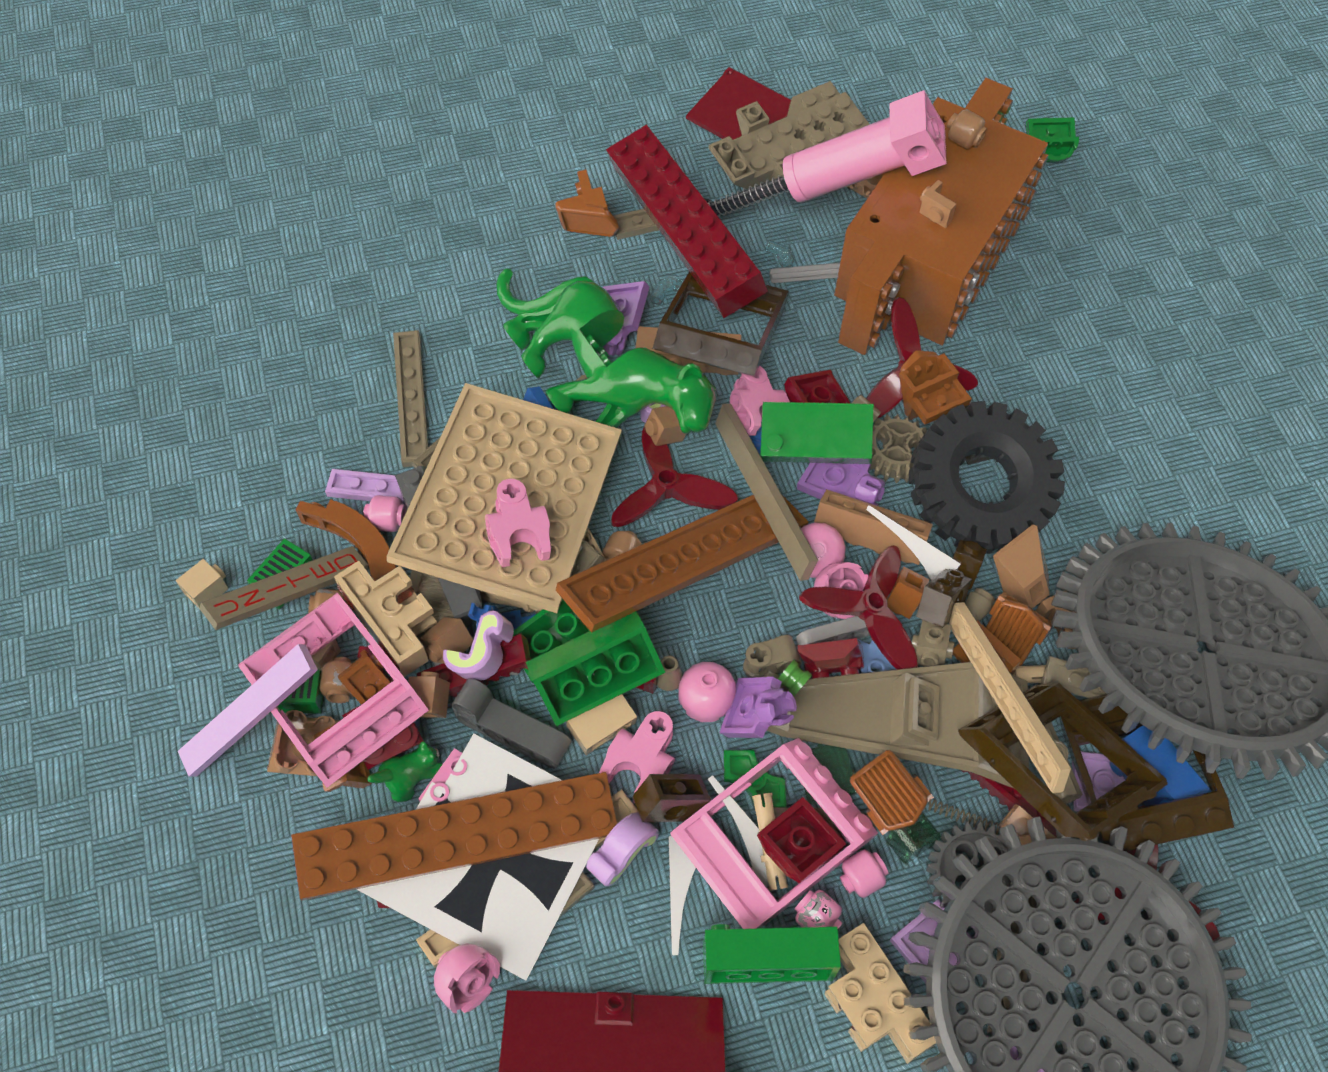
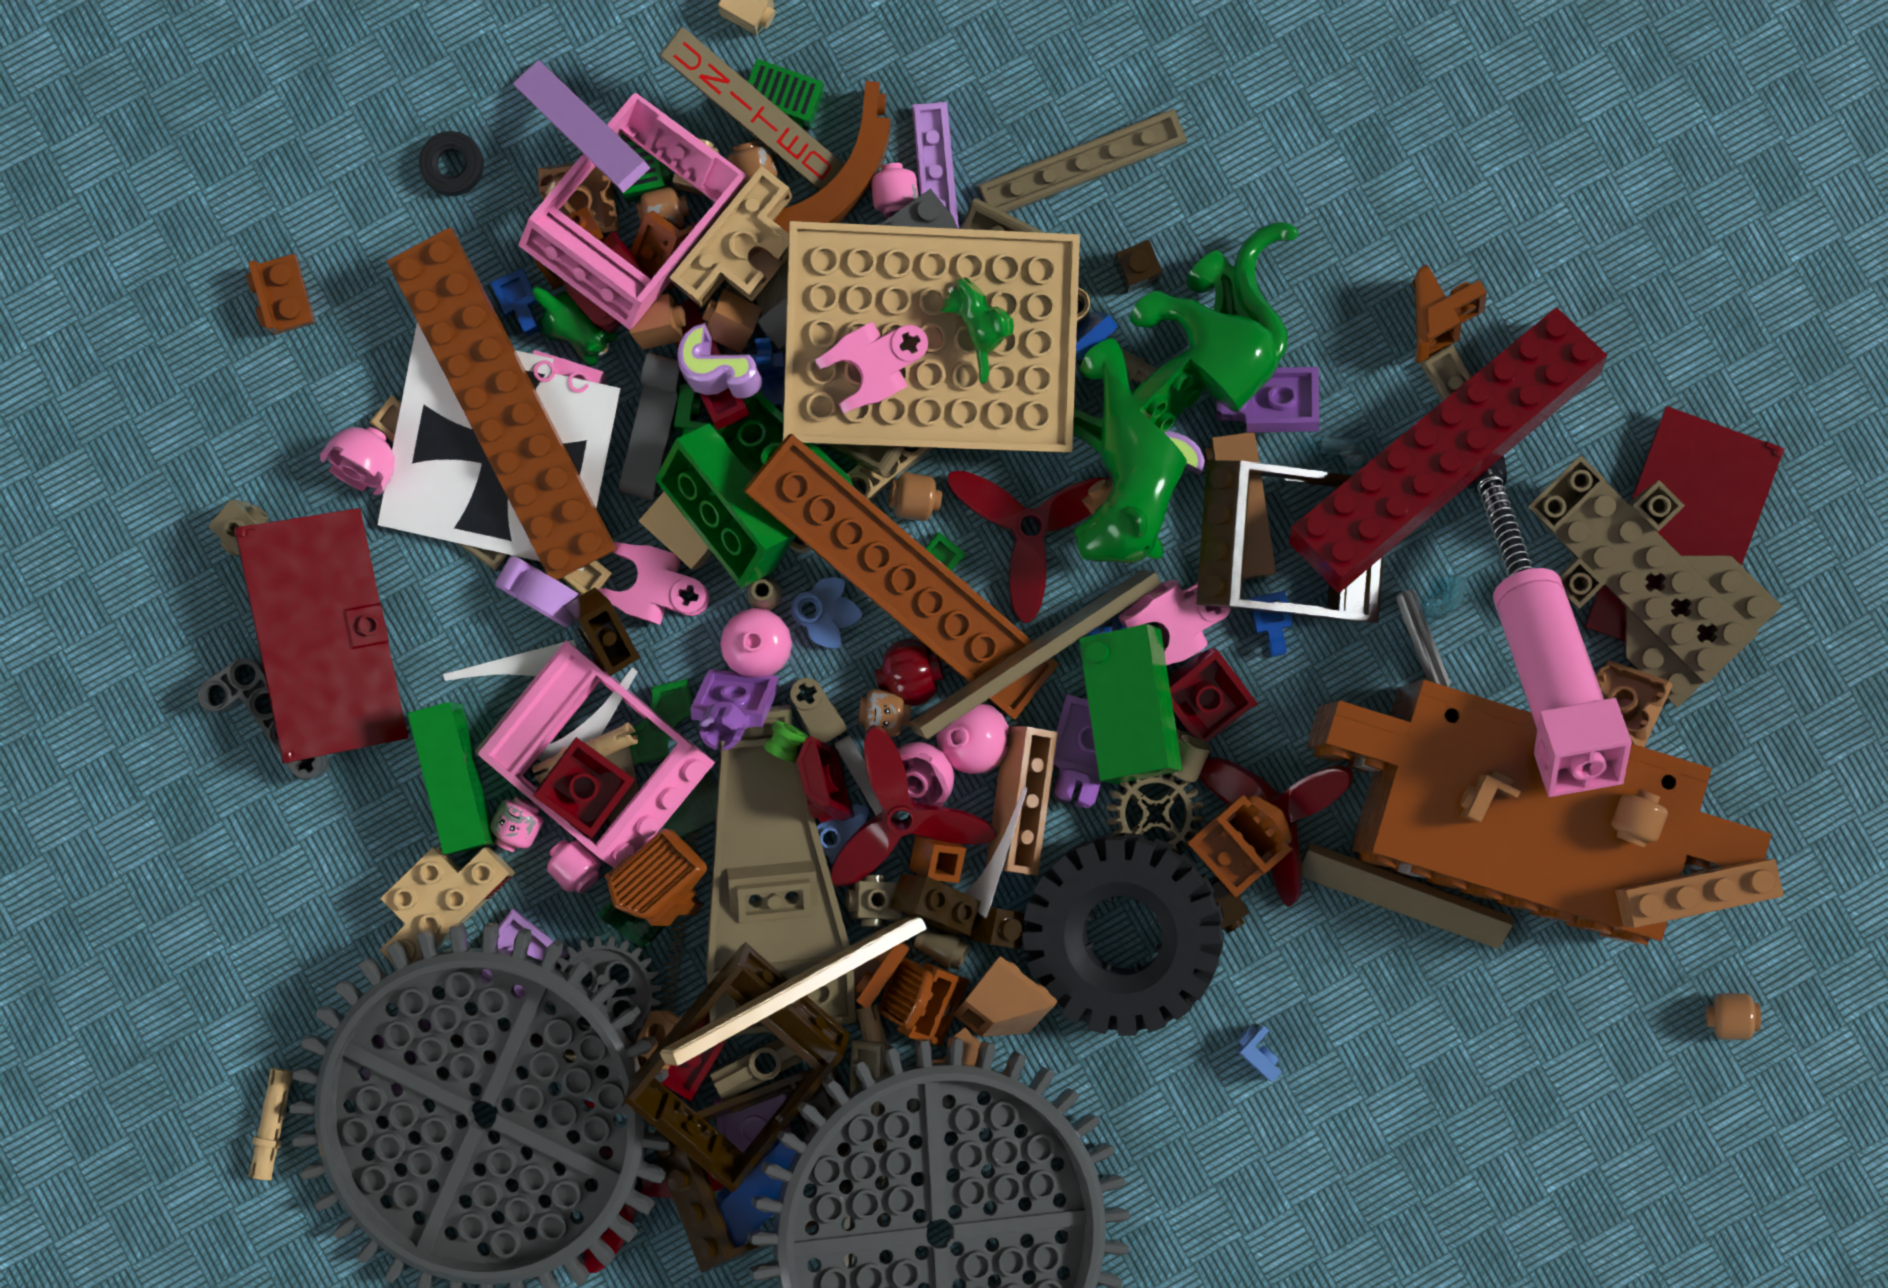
camera: 75 degrees right, 25 degrees up
(226, 826) = (445, 142): none -> black tyre
(291, 1020) = (280, 294): none -> dark orange bracket
(370, 807) = (516, 297): none -> blue plate
(497, 373) = (1137, 266): none -> dark brown brick
(507, 696) = (688, 407): none -> green bracket
(512, 446) = (984, 323): none -> green animal
(694, 633) = (831, 612): none -> medium blue plate
(757, 584) = (910, 672): none -> dark red plant
(775, 350) = (1272, 623): none -> blue plate
(784, 608) = (883, 710): none -> medium nougat head
(983, 312) = (1405, 896): none -> dark tan tile
(1021, 111) = (1699, 892): none -> medium nougat brick
(1058, 133) = (1771, 959): green slope -> none
(1081, 425) = (1260, 1059): none -> medium blue bracket
(1087, 162) = (1734, 1016): none -> medium nougat head

